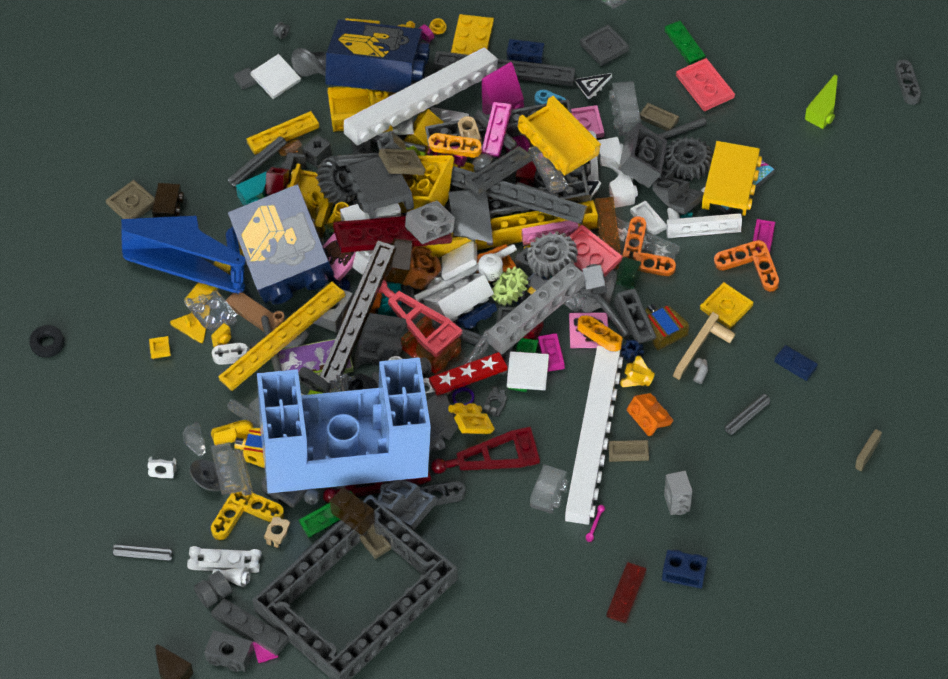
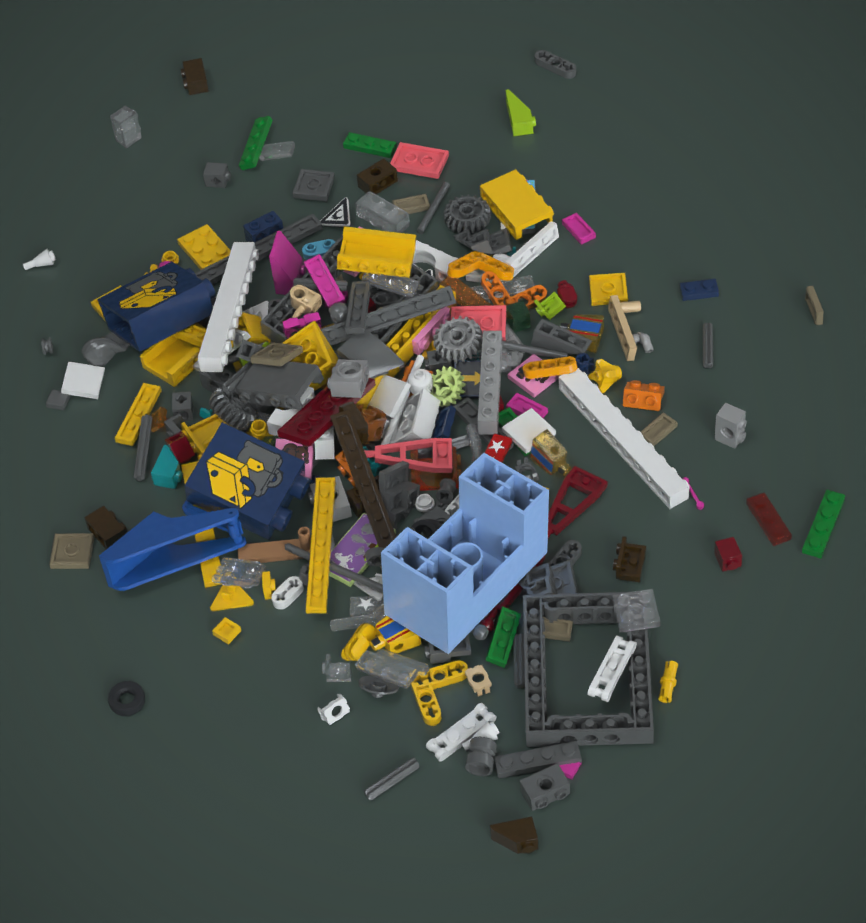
camera: 40 degrees left, 5 degrees down
(352, 511) = (529, 612): dark brown brick -> none
(361, 604) = (611, 668): none -> white plate
(403, 651) = (668, 681): none -> yellow pin
(431, 576) = (636, 610): none -> clear plate
(440, 148) = (293, 314): light orange beam -> none
(483, 534) = (629, 561): none -> dark brown bracket
(520, 402) = (549, 454): none -> clear yellow torso
(548, 489) = (637, 496): clear brick -> none
(560, 593) = (728, 554): none -> dark red brick
(594, 279) = (510, 333): brick -> none
(622, 198) = (481, 261): none -> light orange beam
(642, 155) = (438, 231): dark grey brick -> none
(656, 75) = (377, 177): none -> dark brown brick
(662, 283) = (550, 306): none -> lime bracket
(663, 632) = (823, 524): none -> green plate
(683, 573) = (790, 471): dark blue brick -> none
(688, 284) = (567, 294): none -> dark red arm
(756, 258) = (594, 243): orange beam -> none

